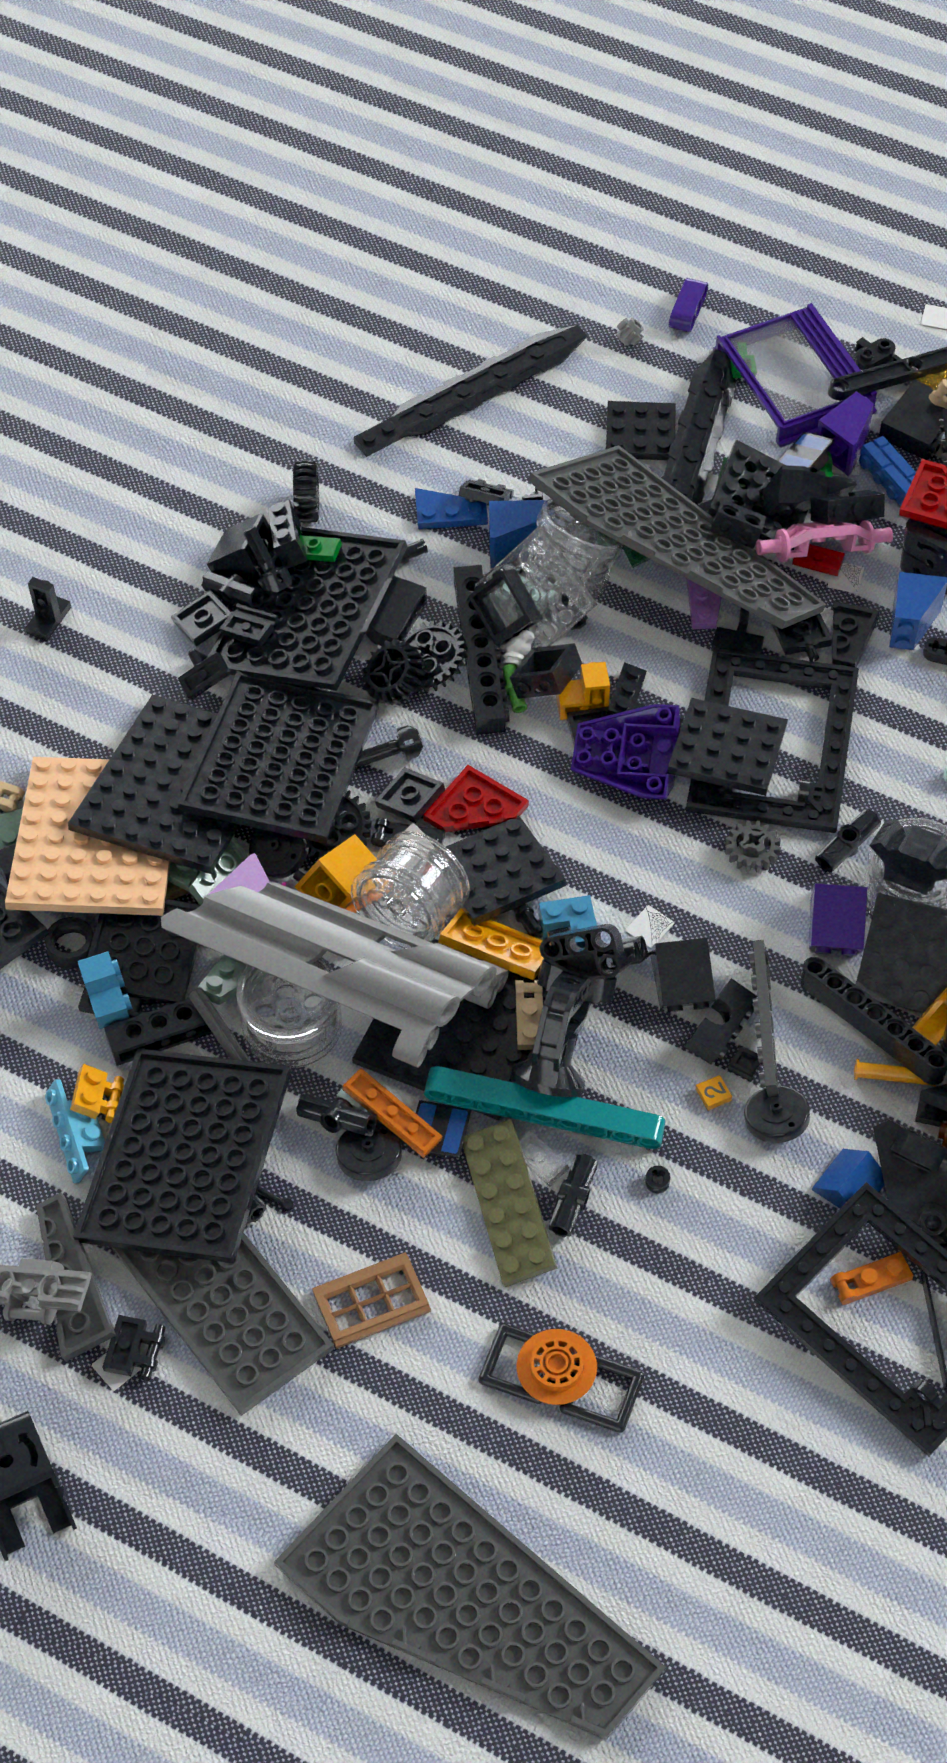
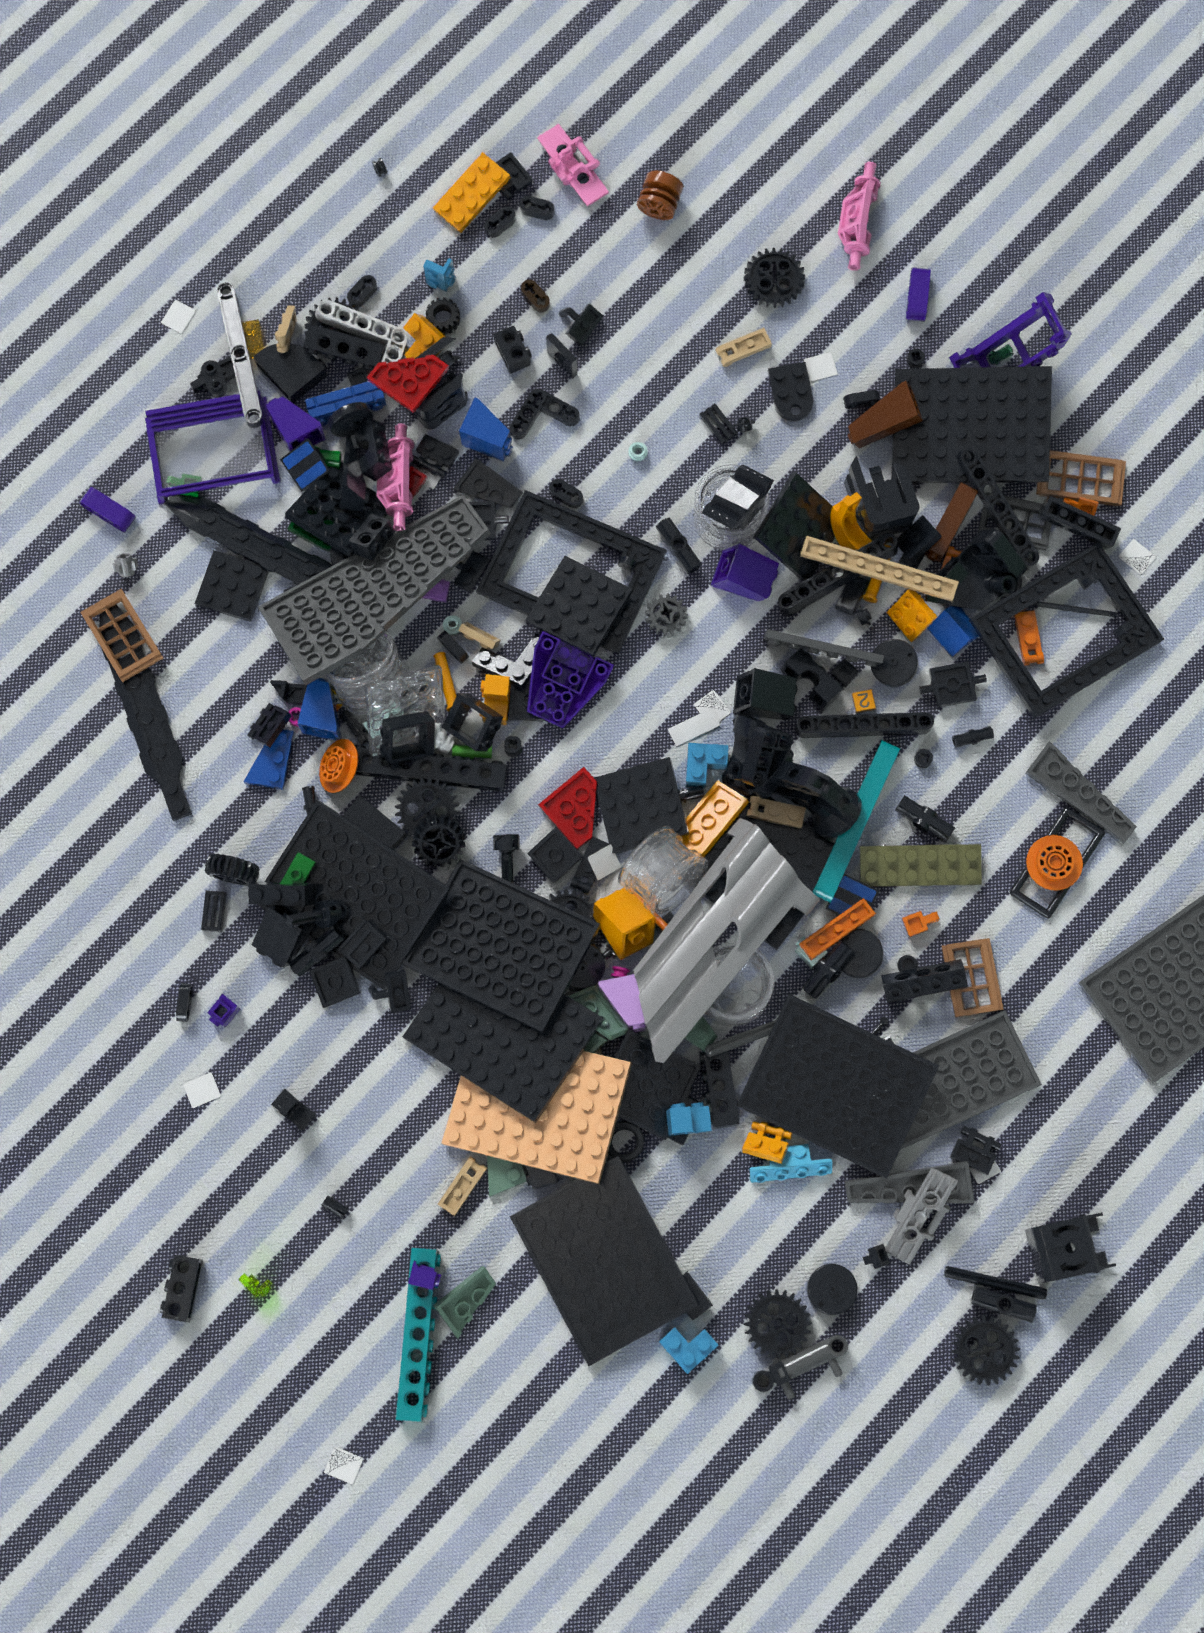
camera: 75 degrees left, 20 degrees up
(55, 533) = (201, 1090): none -> white sticker
(143, 527) = (232, 1009): none -> dark purple window
(148, 492) = (184, 1002): none -> black beam
(259, 499) = (212, 928): none -> black tile
(348, 1230) = (924, 981): none -> black brick
(369, 1215) = (907, 962): none -> black plate
(428, 1214) = (917, 923): none -> orange plate
(455, 559) = (338, 765): none -> orange wheel
(521, 369) = (138, 665): none -> medium nougat piece
(532, 728) = (511, 752): none -> black bush
(602, 642) = (448, 686): none -> light orange pin
(618, 911) = (694, 727): none -> white sticker
(636, 642) = (453, 647): none -> black beam
(659, 663) = (472, 632): none -> tan plate
(664, 638) = (452, 630): none -> light aqua plate
(676, 1369) = (1066, 782): none -> dark grey wing
(684, 1107) = (872, 719): none -> black beam
(706, 1232) = (972, 736): none -> black pin
(771, 1192) = (952, 684): none -> black plate
(829, 1066) = (863, 616): none -> black plate
(848, 1117) = (911, 614): none -> light orange plate
(853, 1046) = (852, 595): none -> black plate
(874, 578) = (436, 451): none -> black plate
(876, 474) = (348, 418): none -> black wheel
(876, 715) = (568, 489): none -> black beam
(892, 1053) = (879, 568): none -> tan plate

